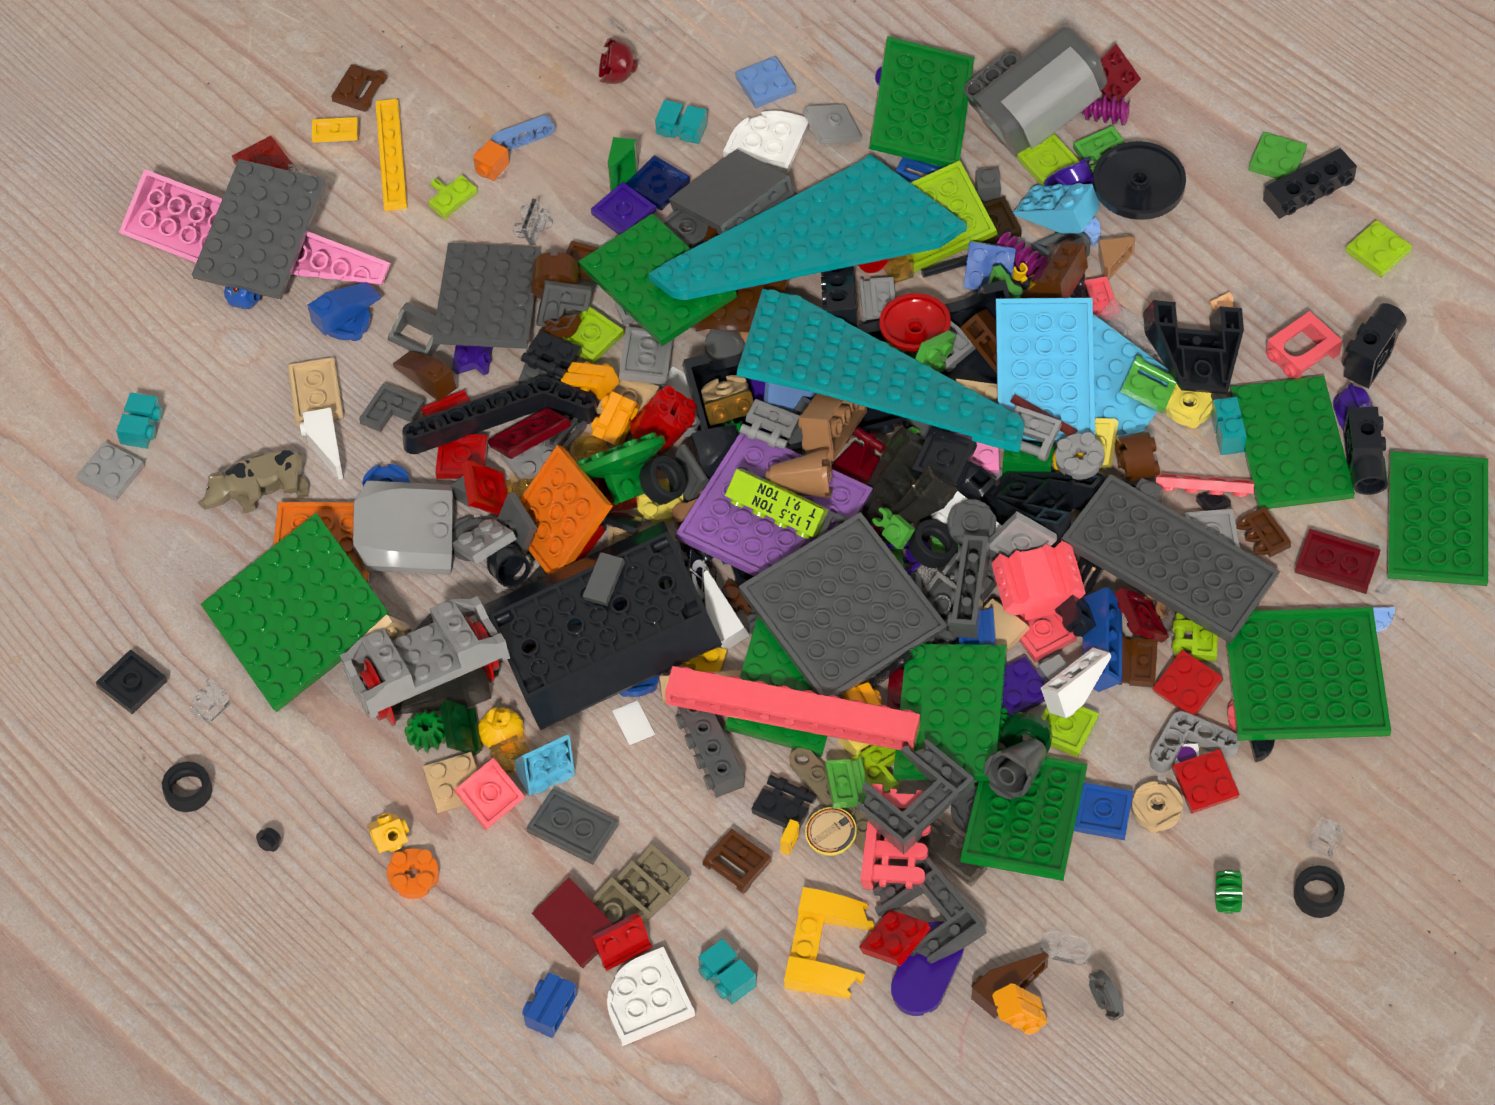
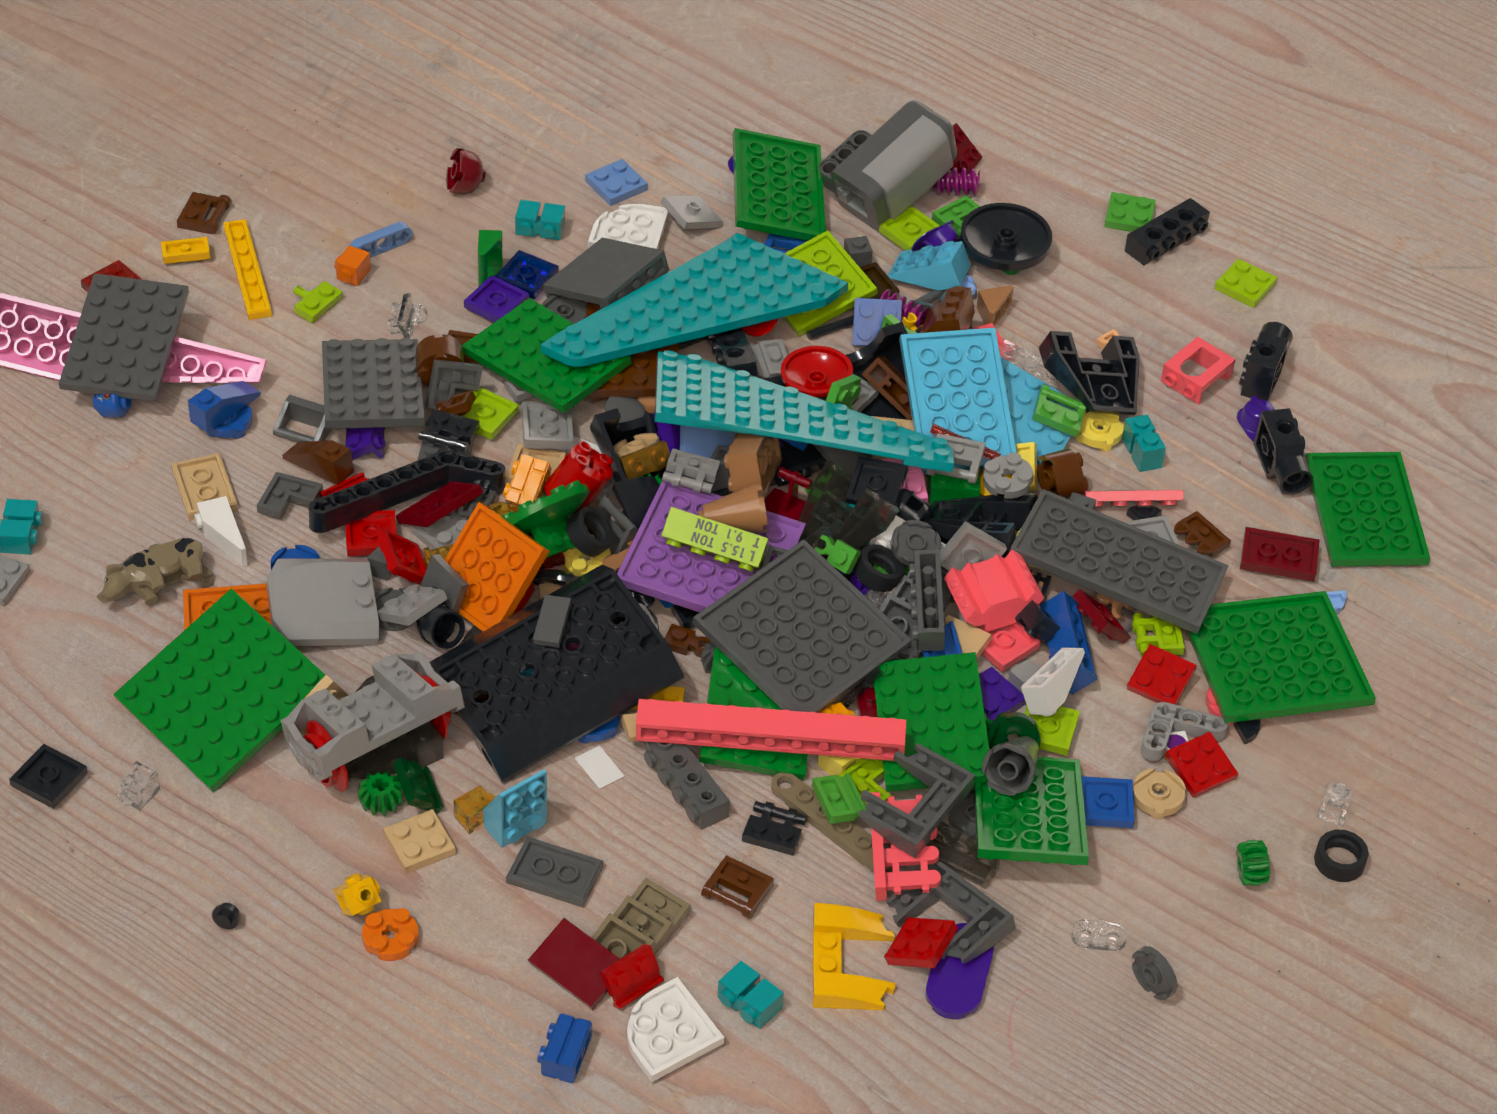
camera: 15 degrees left, 10 degrees down
(182, 770) = (130, 889): black tyre -> none
(489, 793) = (461, 846): coral plate -> none
(500, 725) = (457, 780): yellow hair -> none
(592, 378) = (496, 447): light orange brick -> none
(723, 617) = (689, 662): white slope -> none
(789, 837) = (789, 857): yellow tile -> none
(831, 831) = (831, 847): piece -> none
(900, 268) = (787, 329): clear yellow brick -> none
(1019, 973) = (1045, 975): reddish brown slope -> none
(1020, 1008) = (1069, 995): light orange brick -> none
(1139, 662) = (1109, 661): reddish brown plate -> none
(1293, 443) = (1210, 456): green plate -> none

